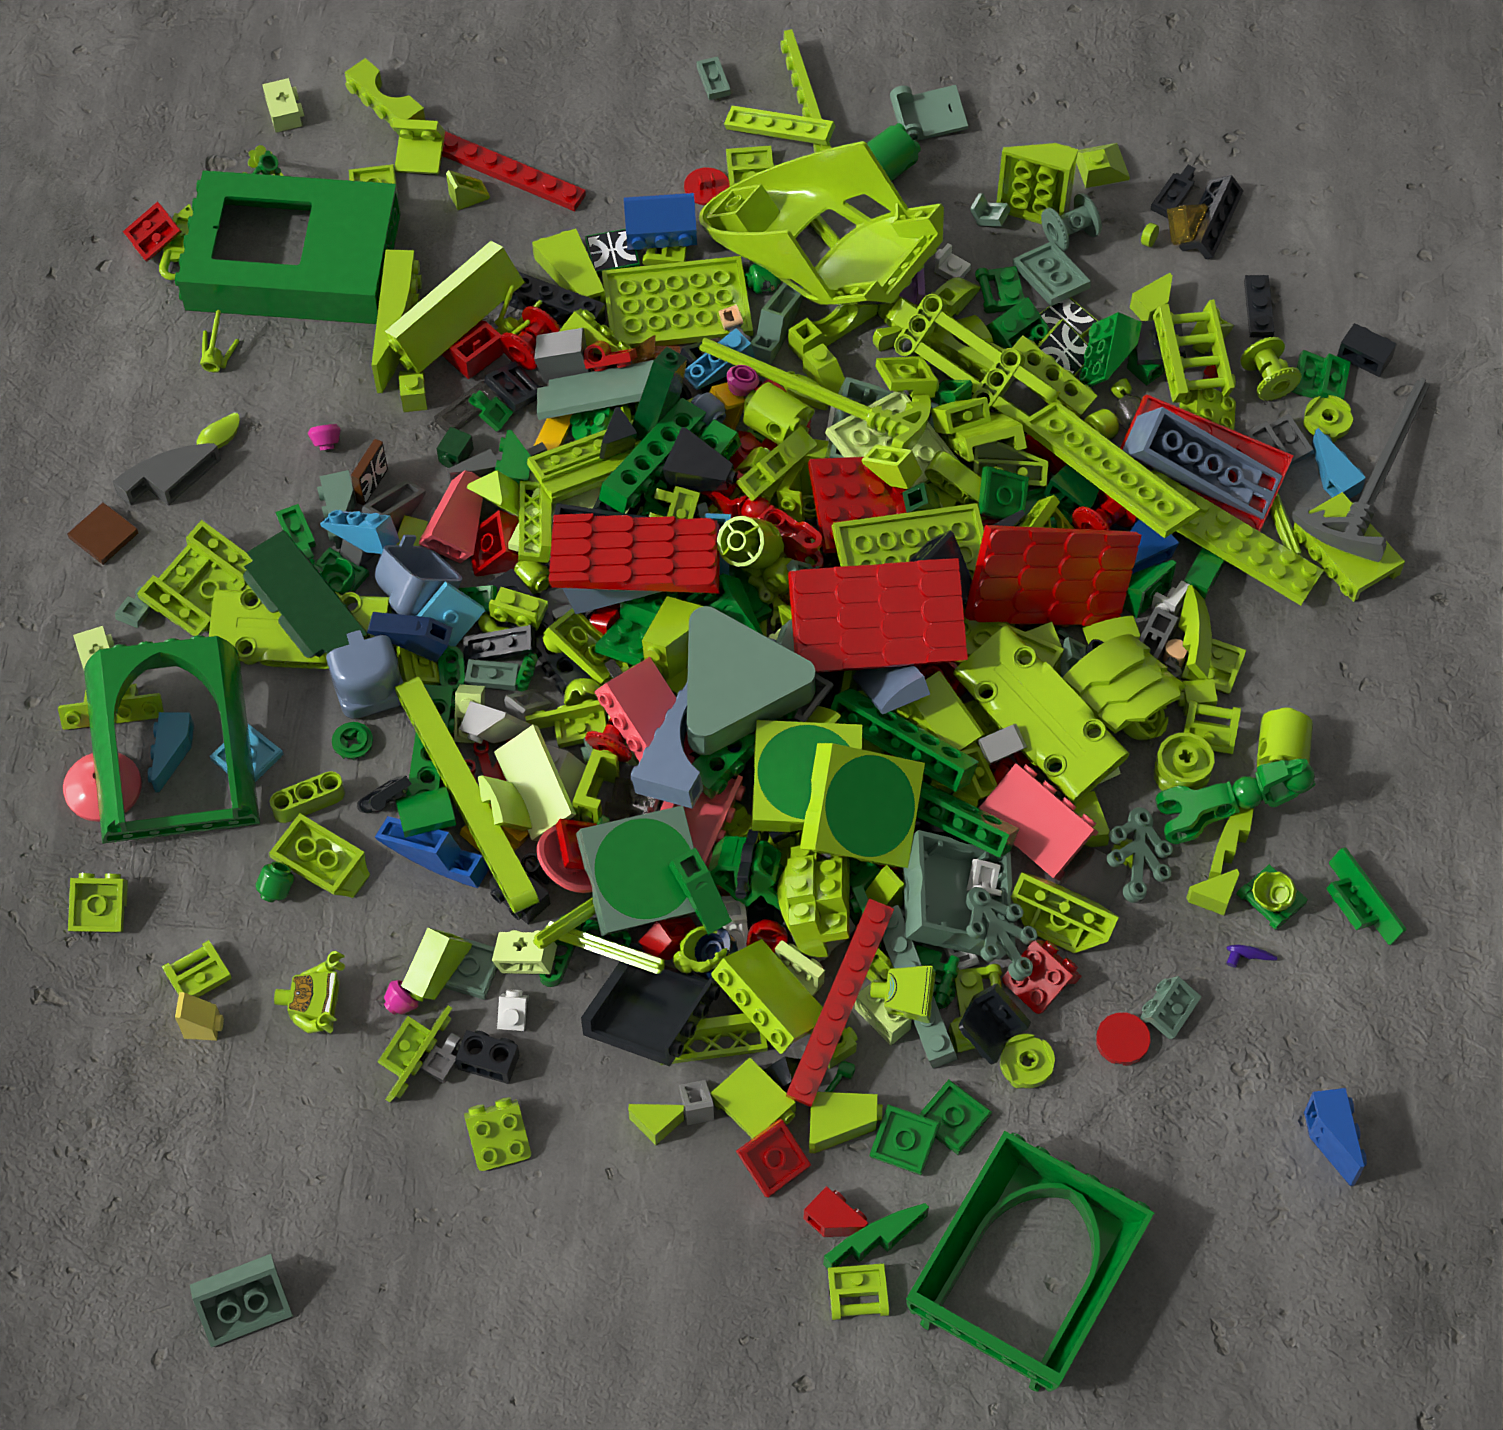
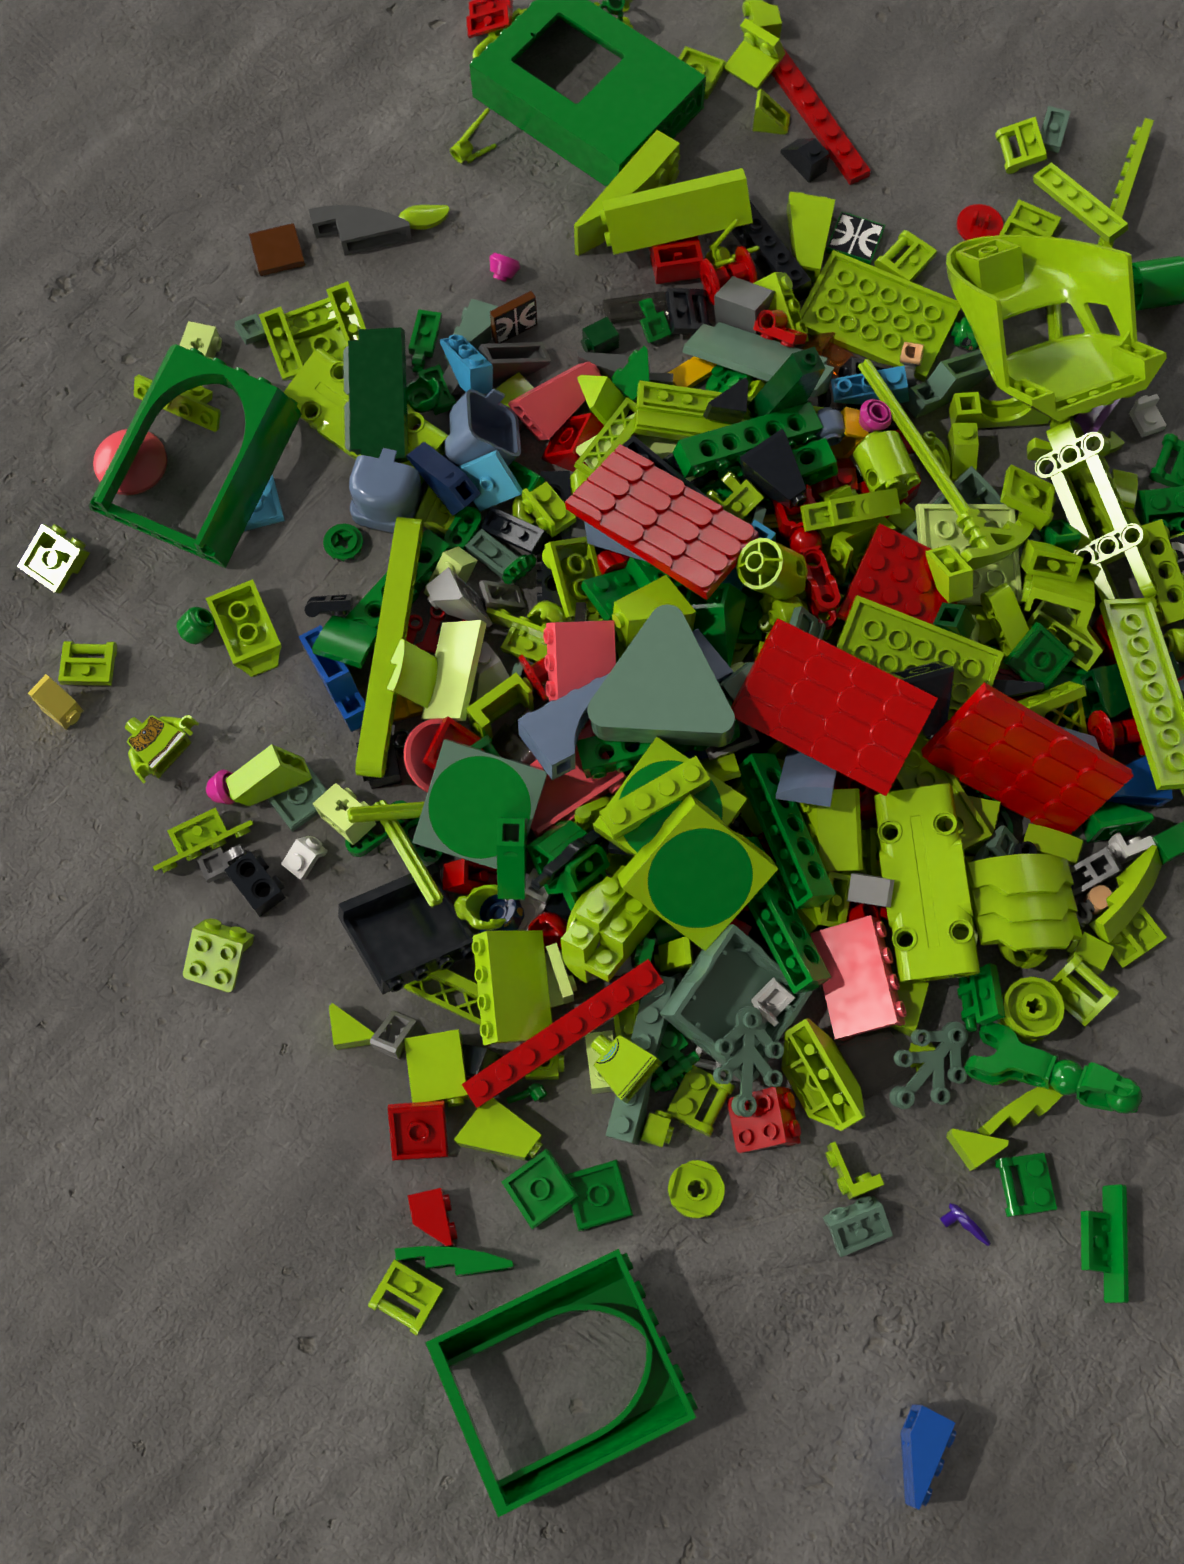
camera: 35 degrees right, 10 degrees up
(172, 744) = (202, 458): dark azure slope -> none
(314, 786) = (264, 561): lime beam -> none
(412, 390) = (602, 267): lime slope -> none
(523, 206) = (807, 157): none -> black slope
(660, 221) = (910, 232): blue slope -> none
(702, 99) = (1029, 144): none -> lime plate
(738, 820) = (588, 813): none -> lime plate
(789, 766) = (659, 793): none -> lime arch
(957, 294) = (1127, 446): lime slope -> none
(992, 1021) = (682, 1136): black bracket -> none
(1123, 1039) = (795, 1225): red tile -> none
(1138, 981) = (864, 1183): none -> lime bracket
(1145, 773) = (986, 997): none -> green plate
(1274, 891) = (1027, 1185): lime hair -> none
(1284, 736) = (1139, 1048): lime cylinder -> none

